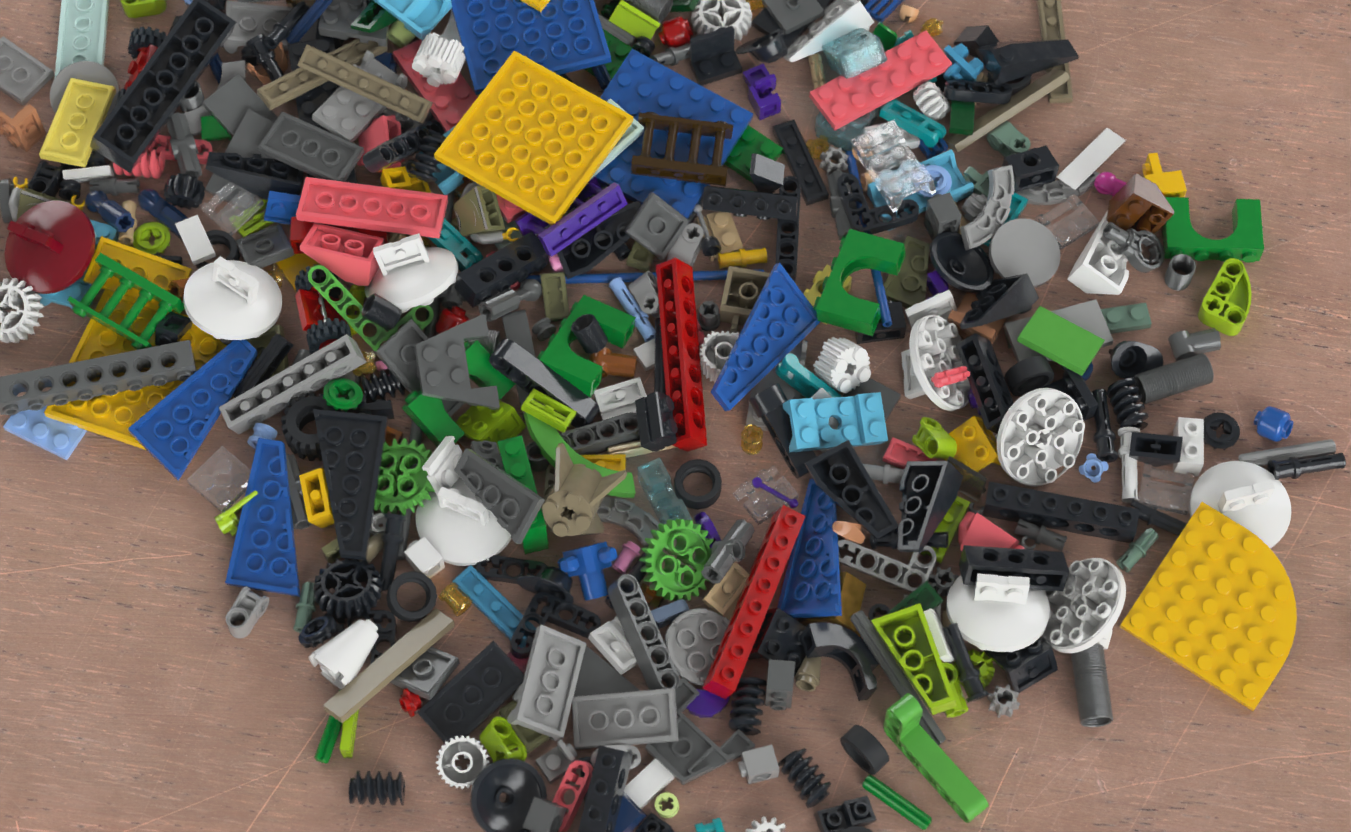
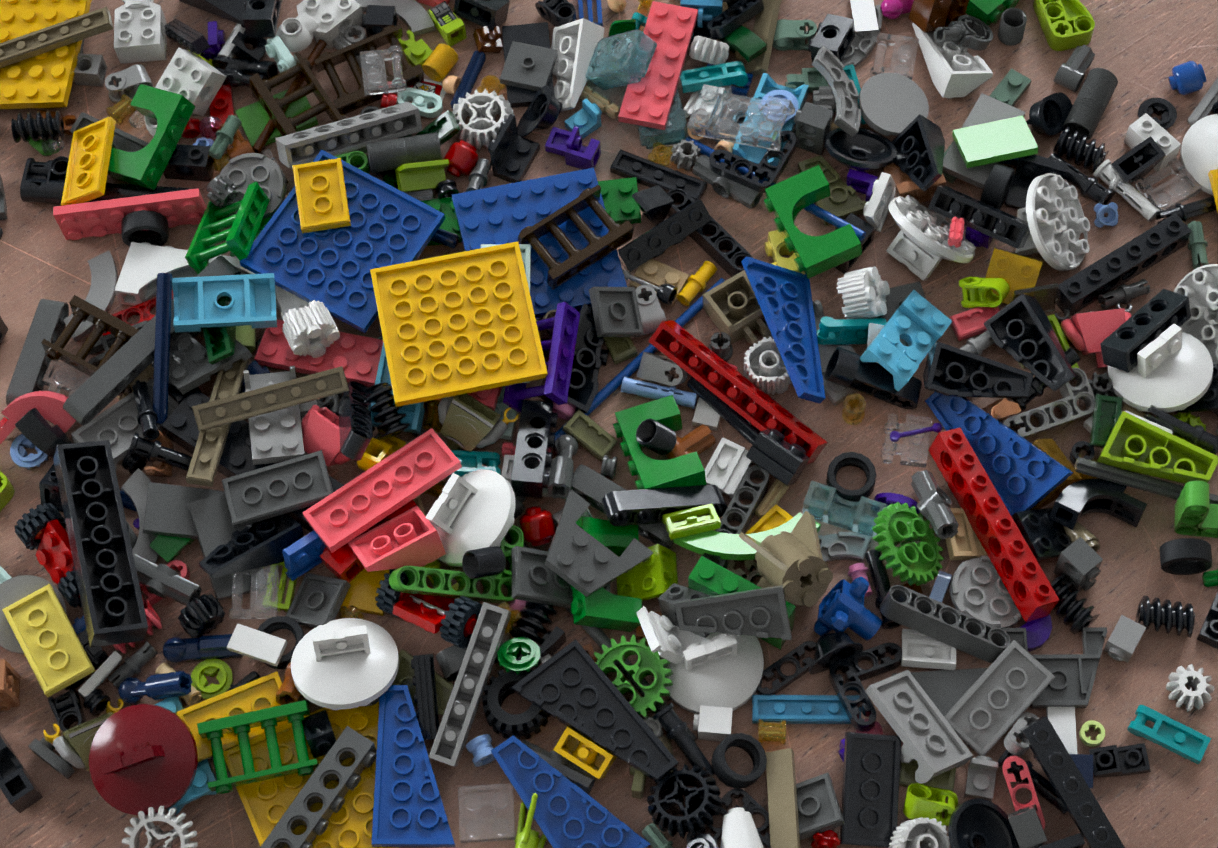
camera: 40 degrees left, 0 degrees up
(791, 79) = (587, 119): none -> medium azure bracket

